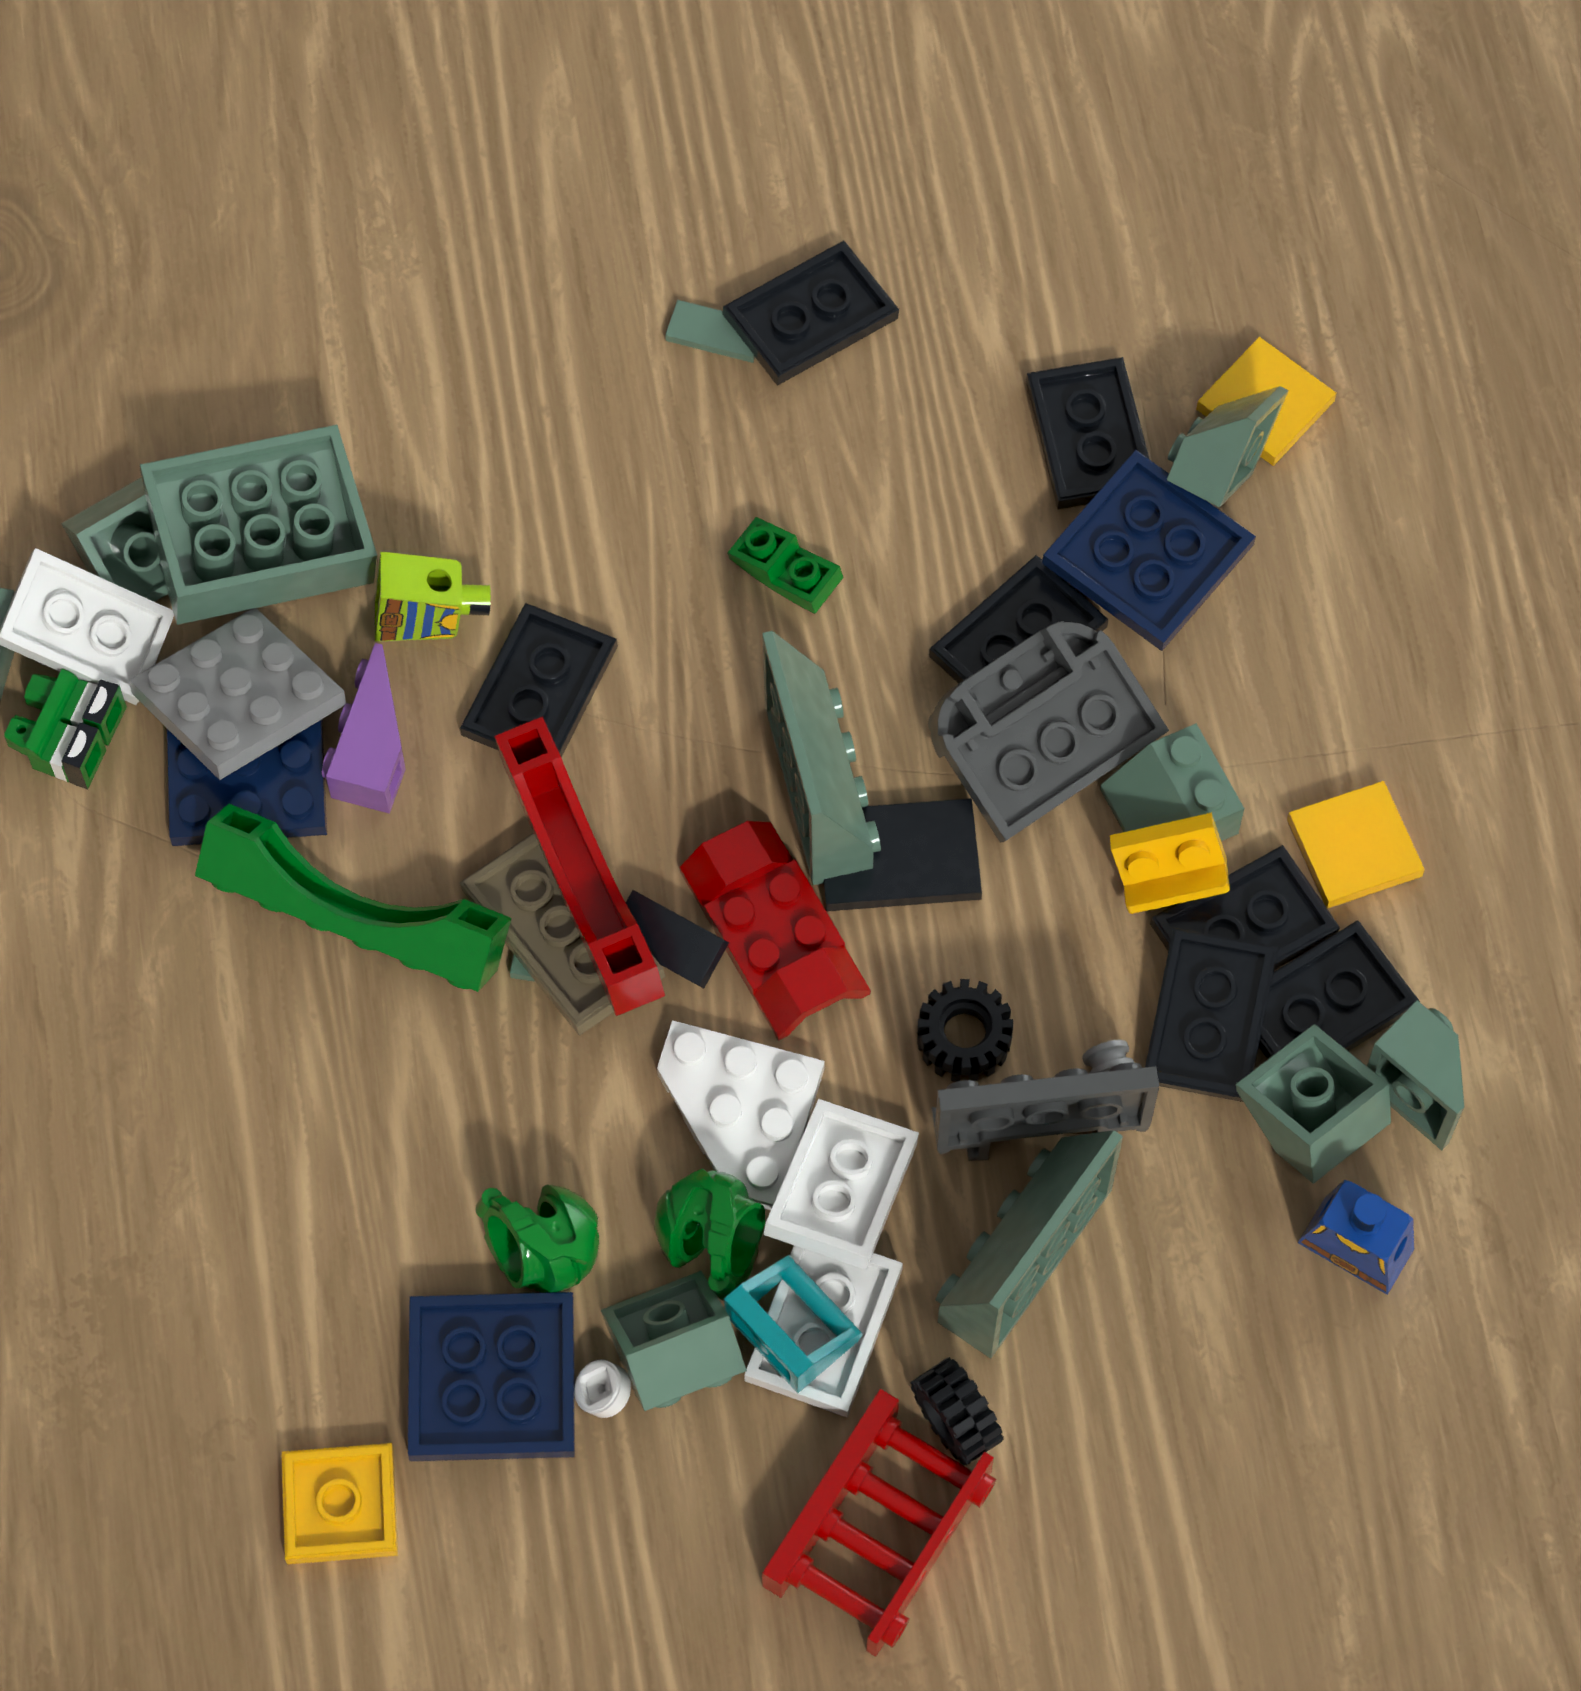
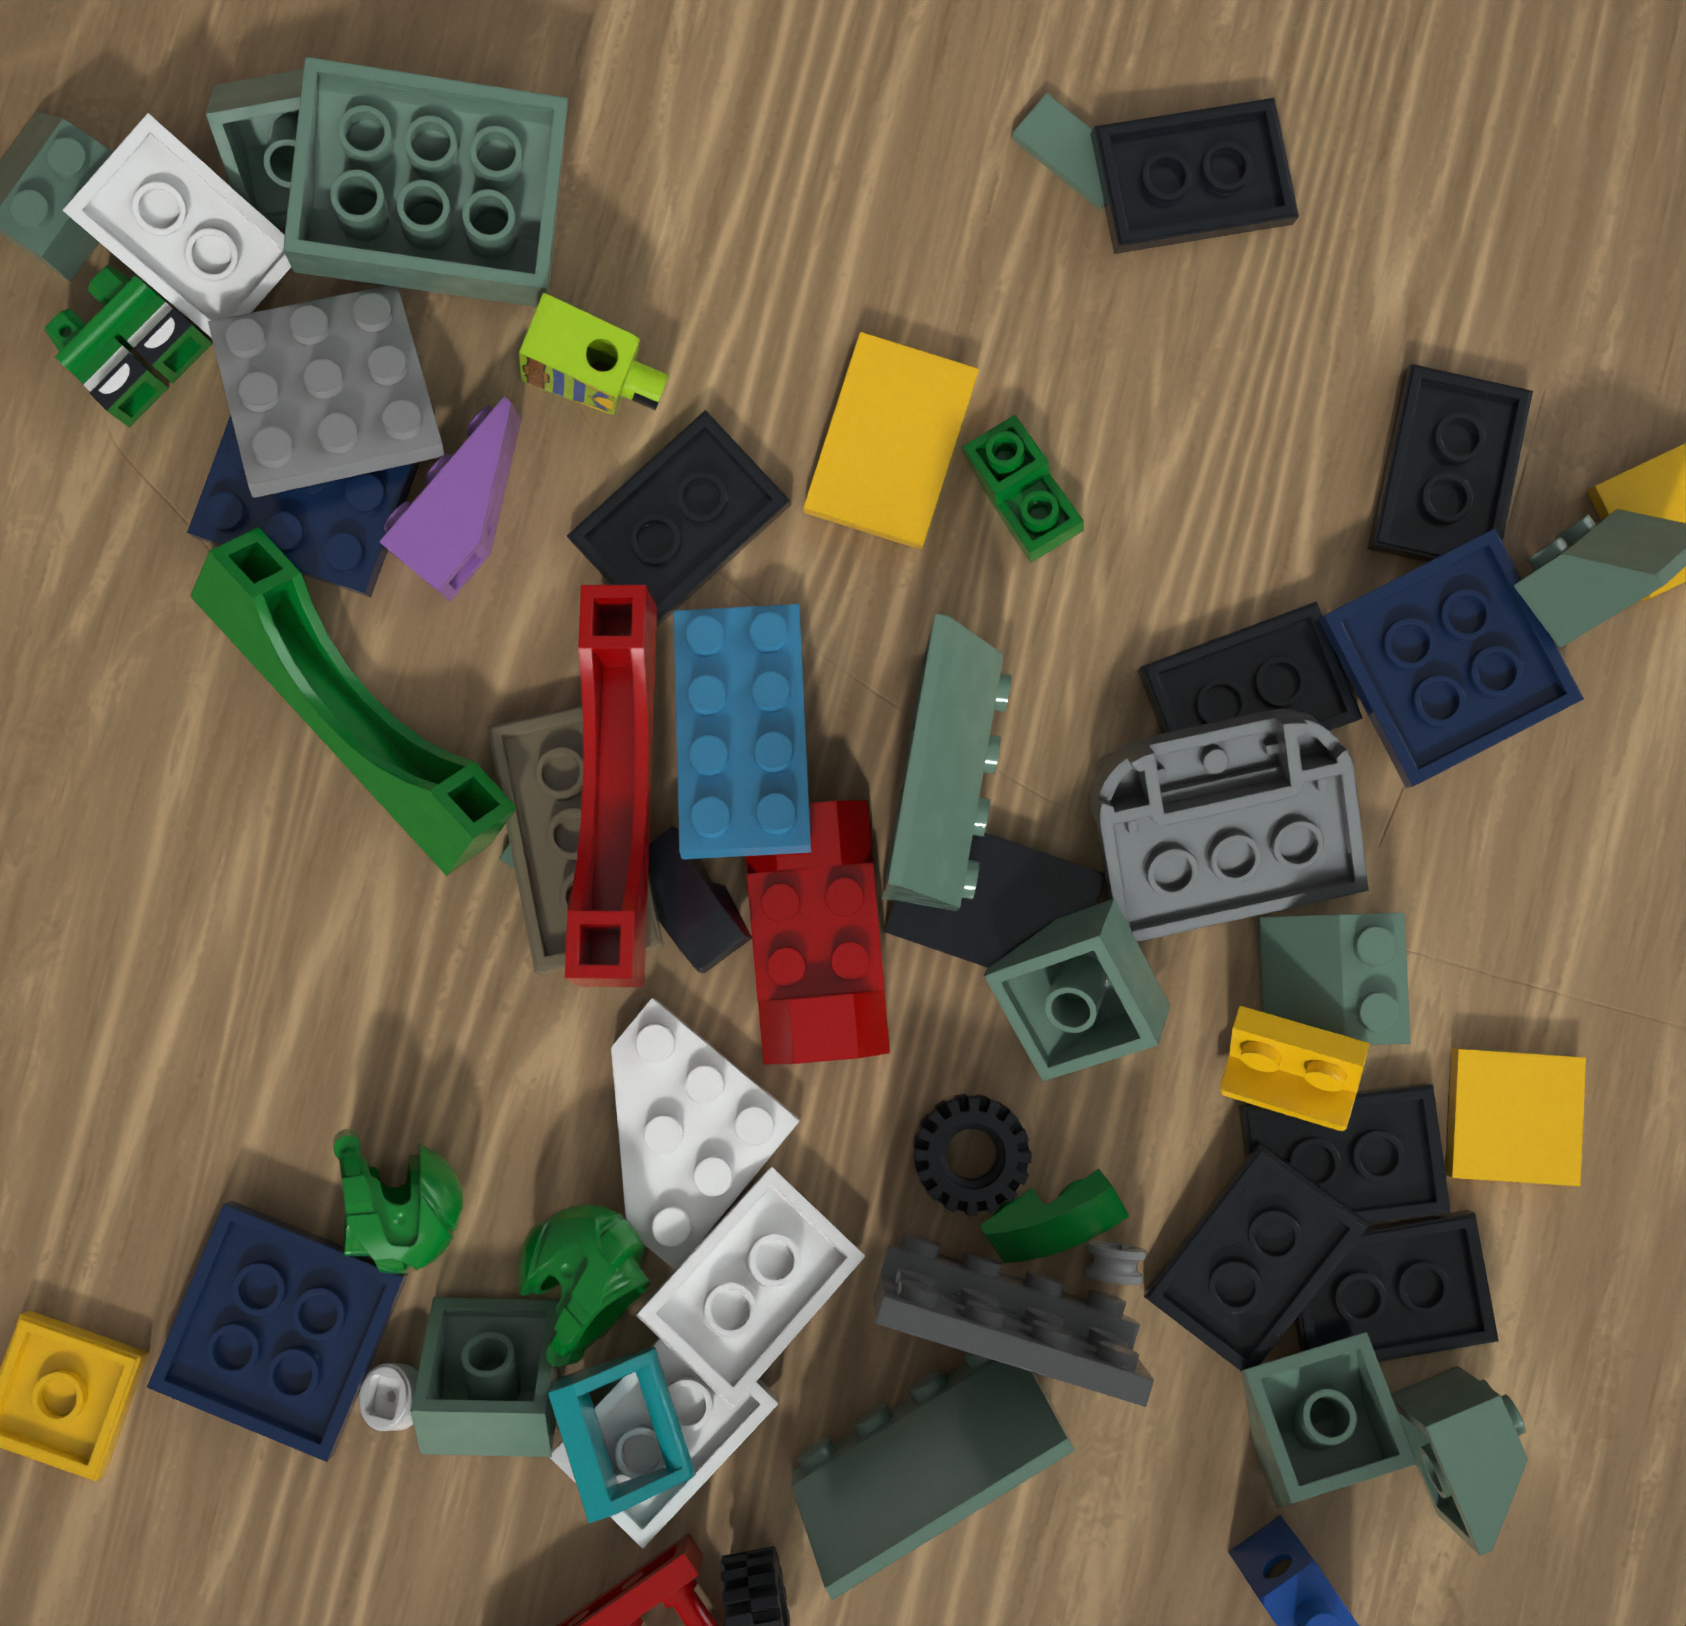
camera: 20 degrees right, 20 degrees up
(655, 803) = (741, 732): none -> dark azure plate
(672, 572) = (890, 440): none -> yellow tile
(988, 878) = (1080, 992): none -> sand green slope
(1055, 1042) = (1031, 1230): none -> green slope

